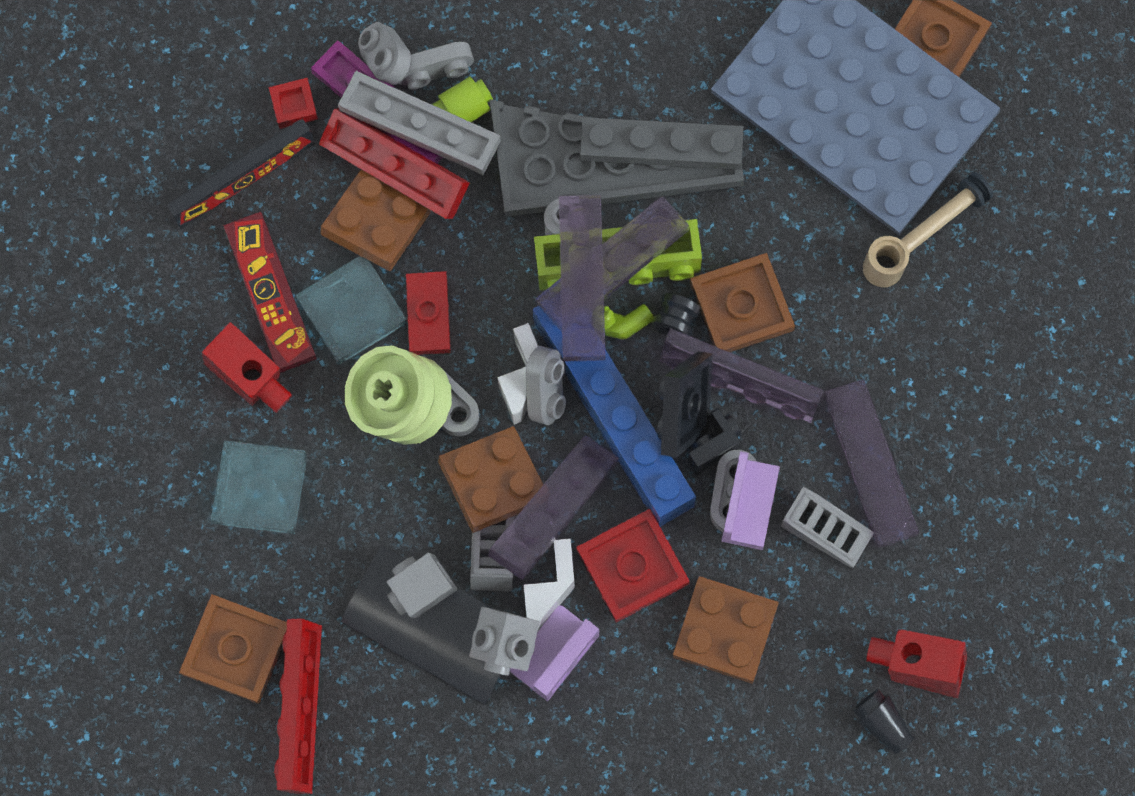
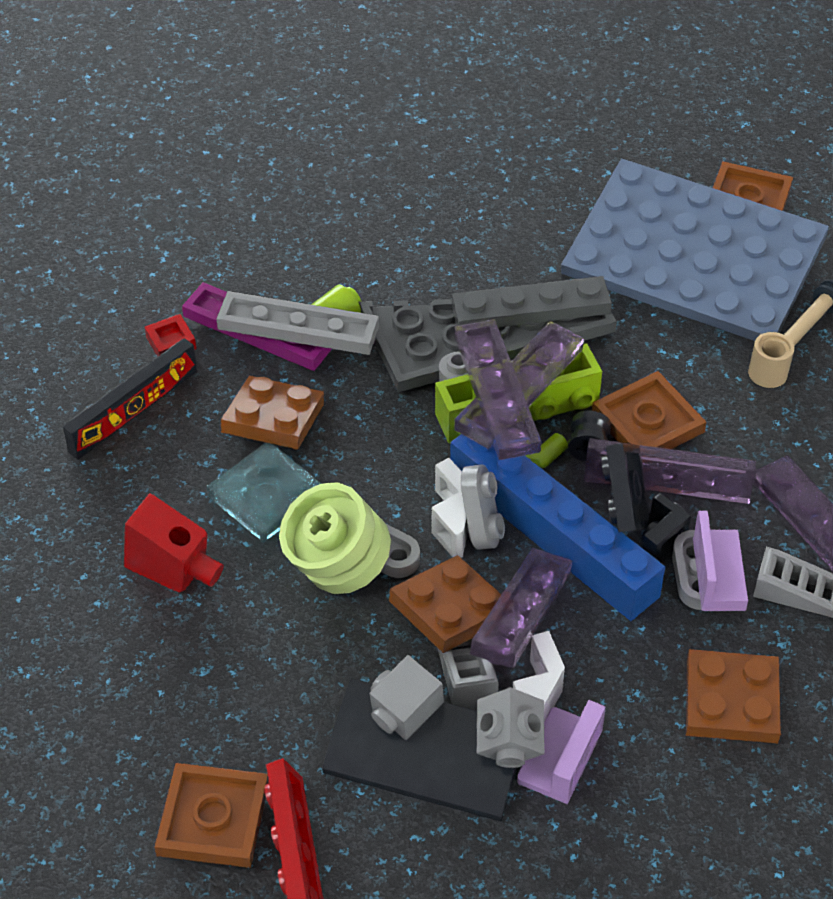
camera: 15 degrees left, 25 degrees down
(259, 487) = (205, 661): clear light blue plate -> none
(269, 292) = (179, 487): tile -> none
(384, 53) = (250, 278): light grey plate -> none
(394, 163) = (281, 361): red plate -> none
(428, 313) = (342, 465): red plate -> none
(446, 60) = (300, 283): light grey plate -> none
(632, 565) = (618, 653): red plate -> none

